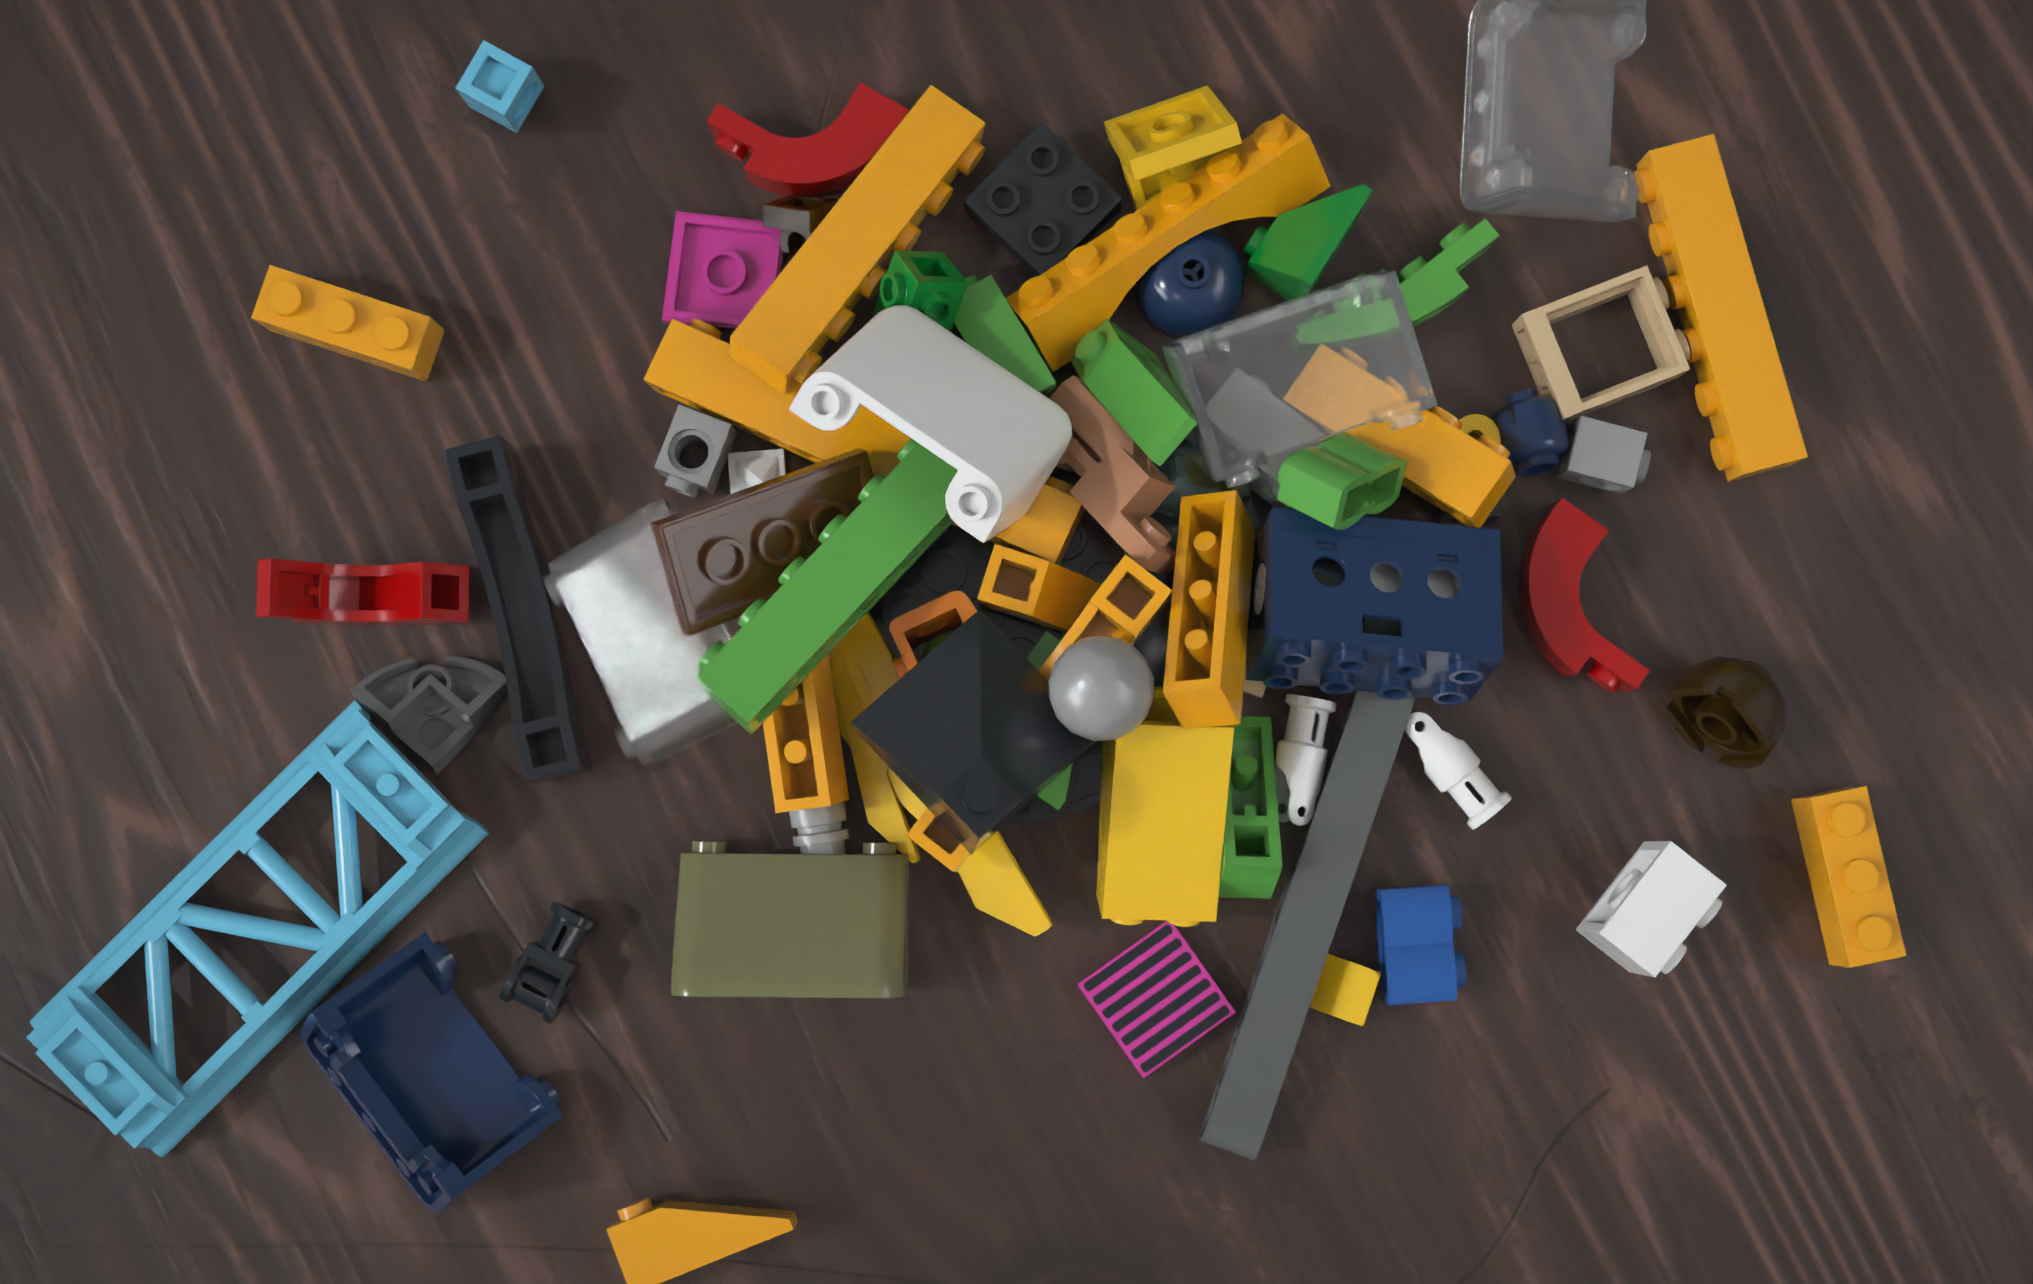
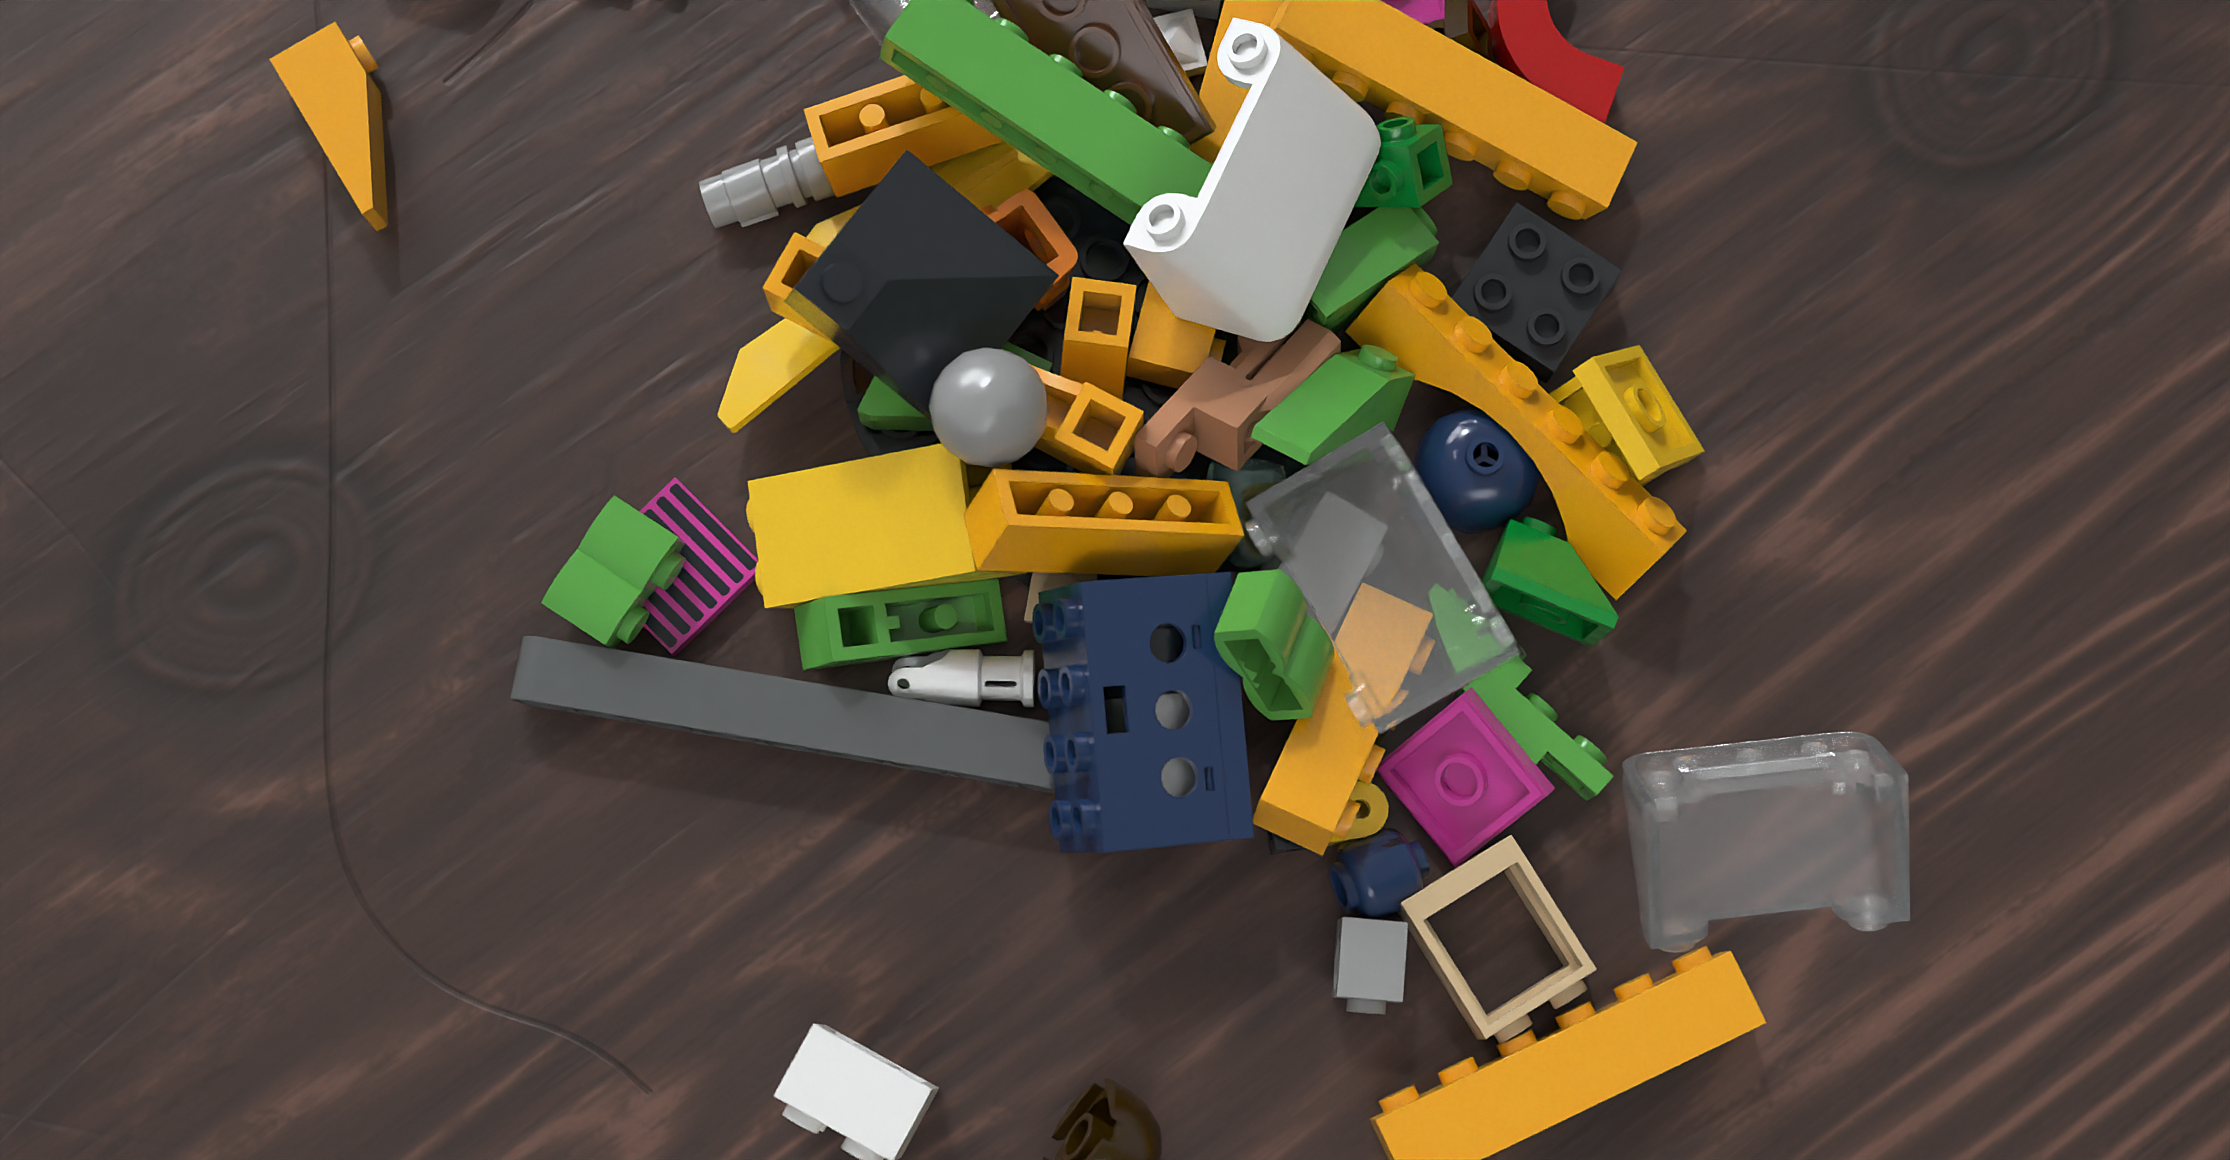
camera: 75 degrees right, 5 degrees down
(791, 924) = (687, 159): olive windscreen -> none
(1163, 1049) = (615, 574): none -> bright green brick
(1345, 990) = (716, 769): yellow slope -> none
(1417, 944) = (778, 841): blue brick -> none
(1452, 763) = (984, 850): white piece -> none
(1469, 342) = (1464, 777): none -> dark pink tile
(1552, 602) = (1208, 923): red arch -> none

